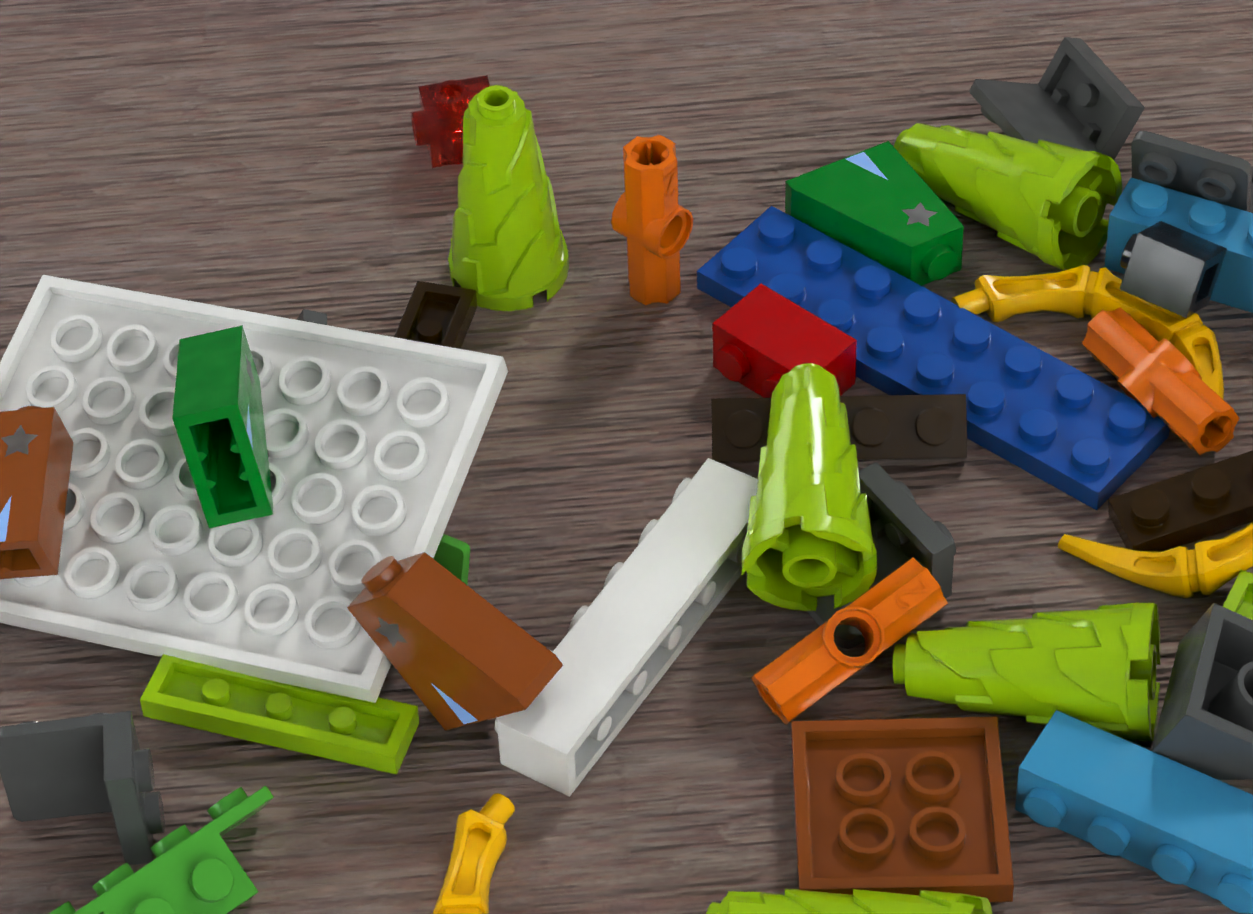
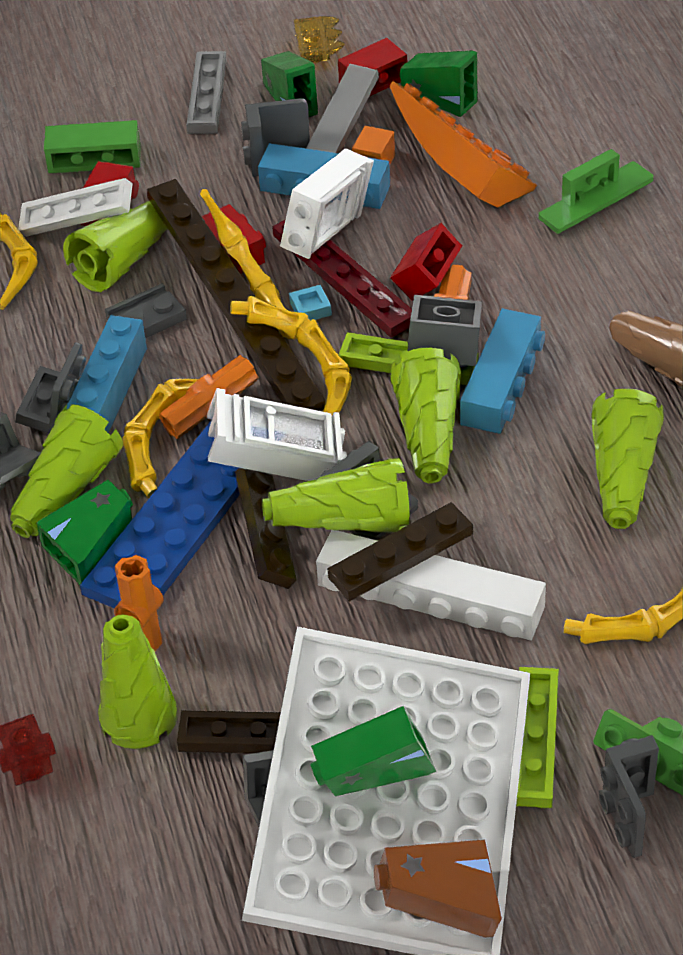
camera: 100 degrees left, 0 degrees up
(450, 642) = (499, 627): dark orange slope -> none
(689, 562) = (400, 551): none -> dark brown plate
(771, 335) = (210, 557): red brick -> none
(881, 615) = (428, 484): orange piece -> none
(901, 806) = (524, 465): dark orange plate -> none
(1007, 430) = (273, 436): none -> white door
(1171, 268) = (136, 387): black brick -> none

